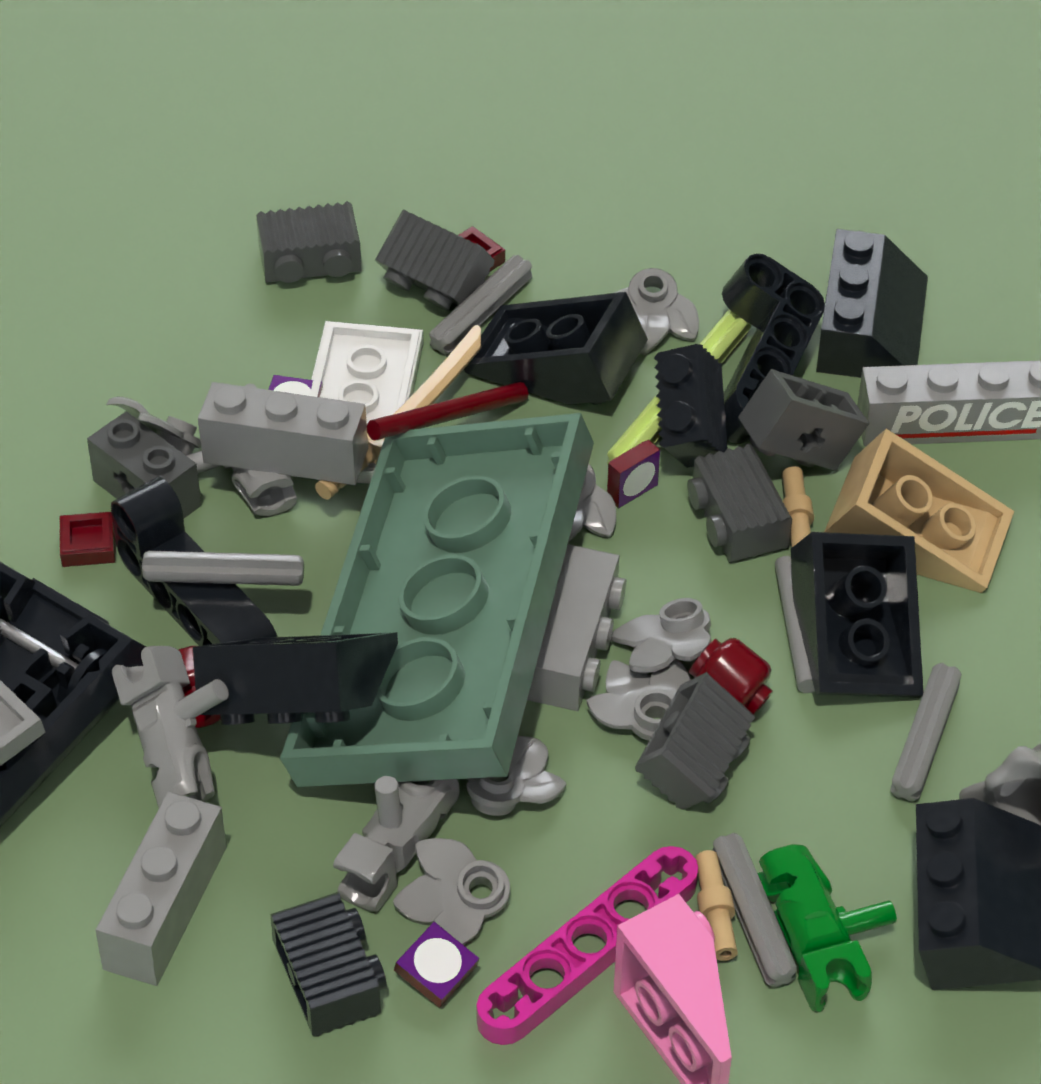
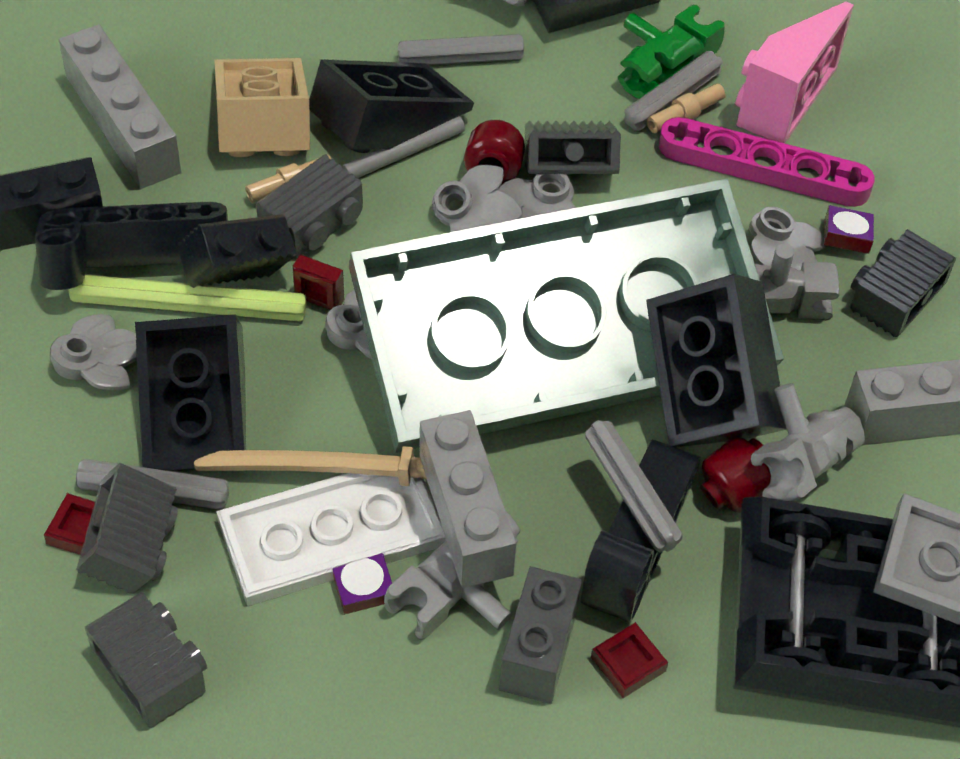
camera: 120 degrees left, 5 degrees up
(174, 430) = (479, 648): light grey plate -> none
(447, 411) = (334, 419): dark red bar -> none
(802, 420) = (217, 171): dark grey brick -> none

